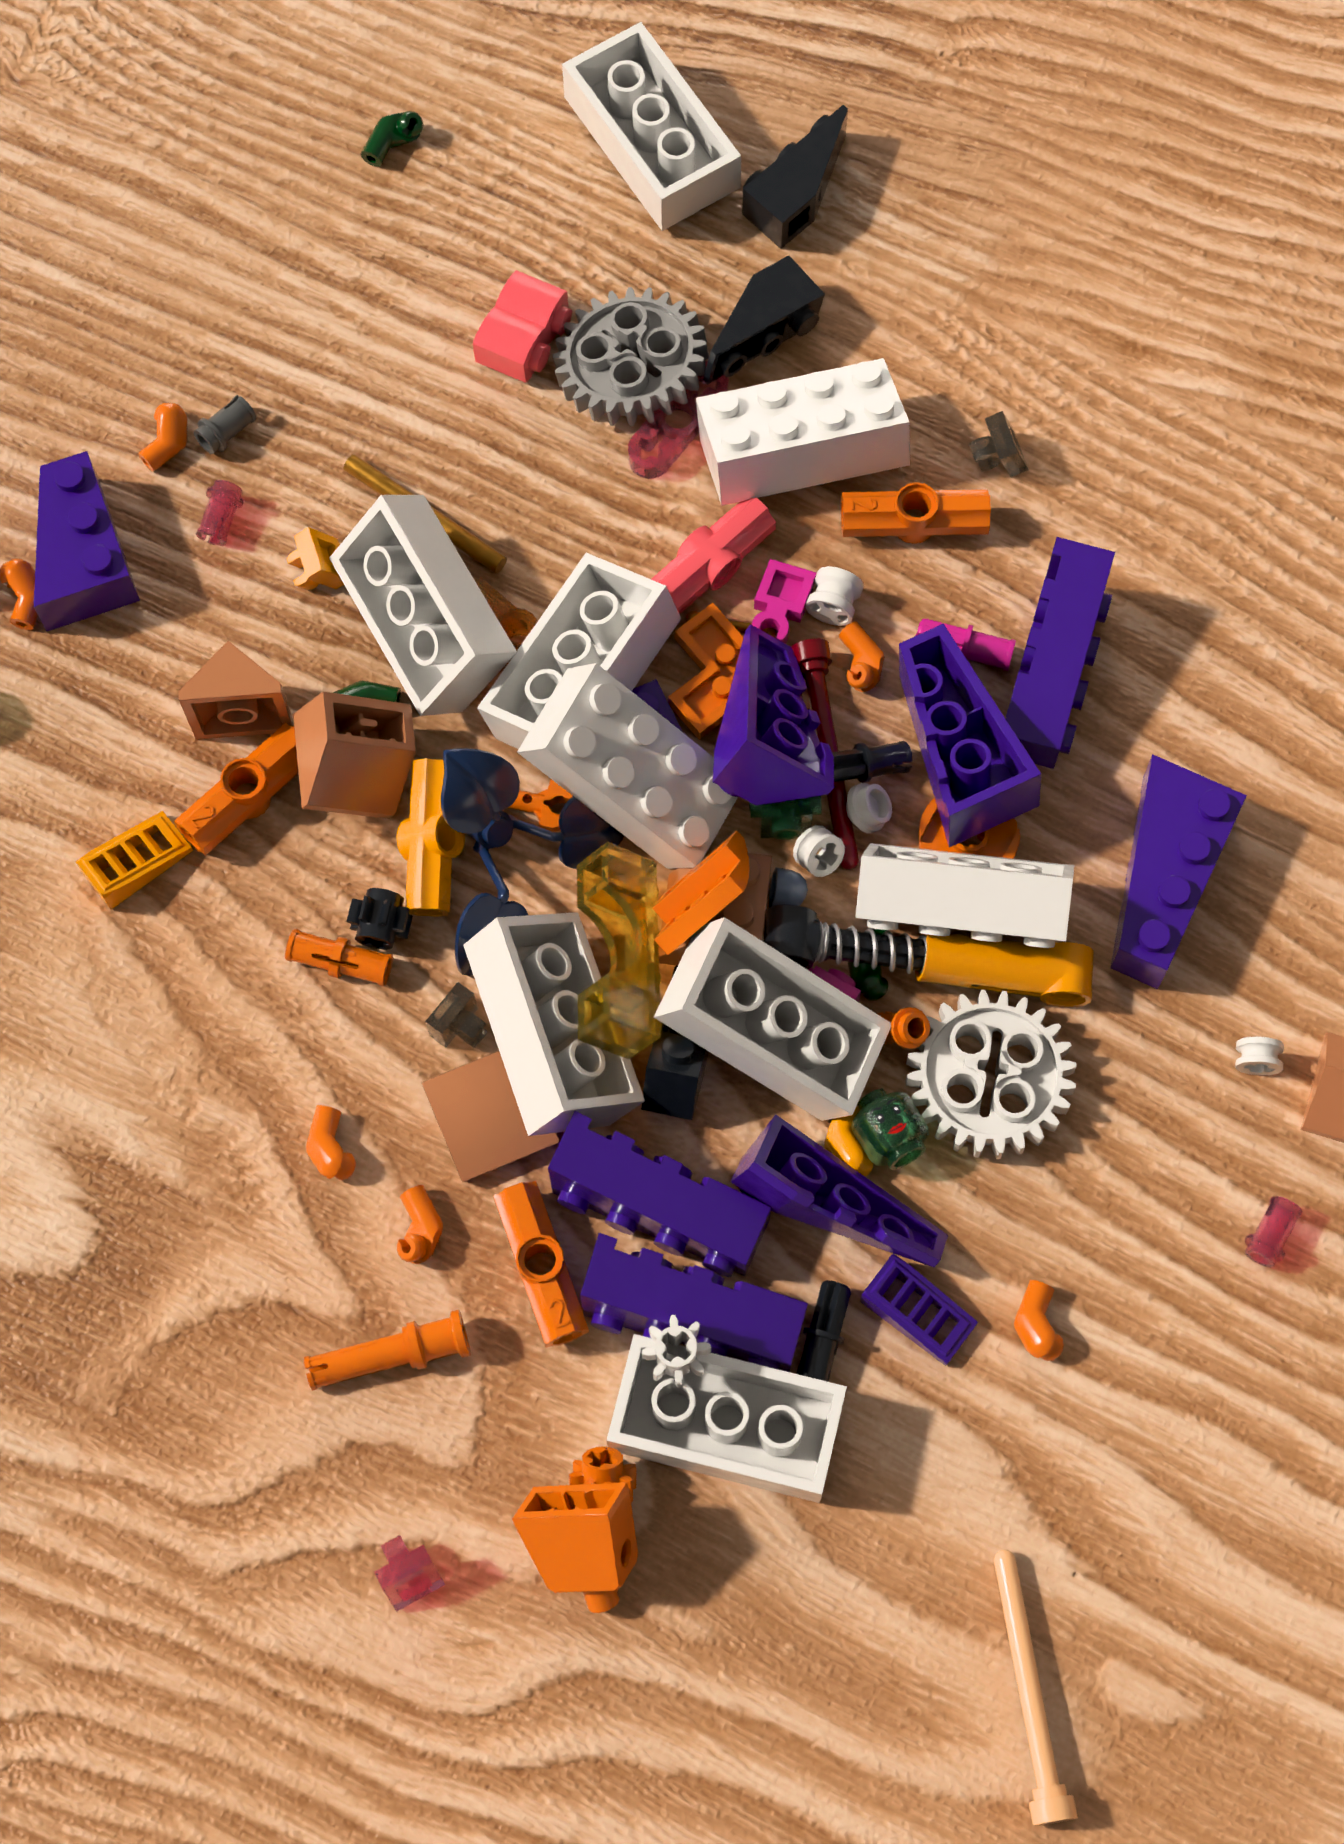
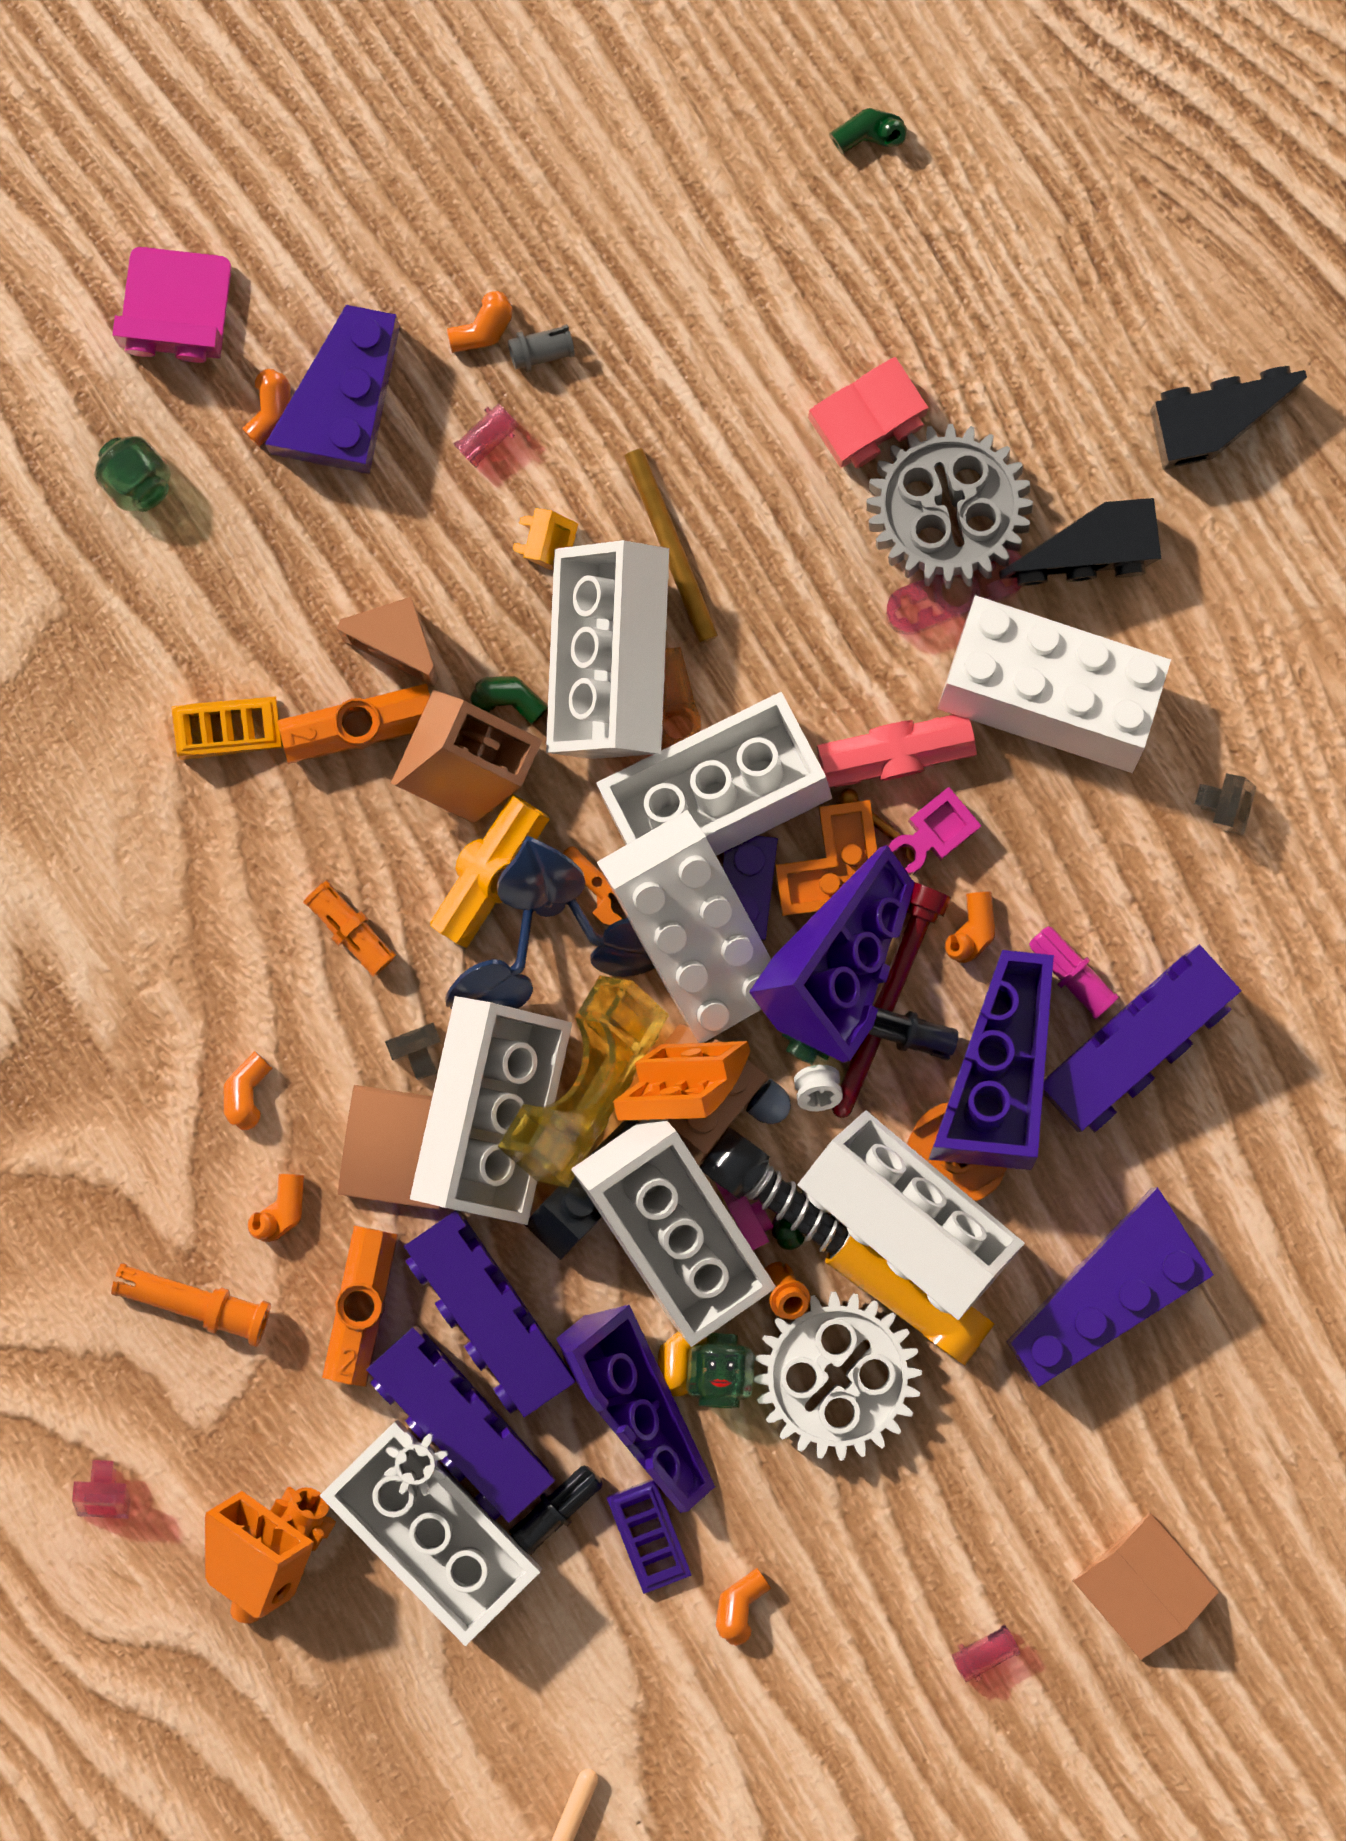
camera: 30 degrees right, 15 degrees up
(379, 918) = (402, 918): black gear -> none
(651, 126) = (1113, 278): white brick -> none
(834, 596) = (984, 857): white wheel -> none
(868, 807) = (887, 1073): white plate -> none
(944, 510) = (1138, 836): orange piece -> none
(1259, 1056) = (1075, 1500): white bush -> none

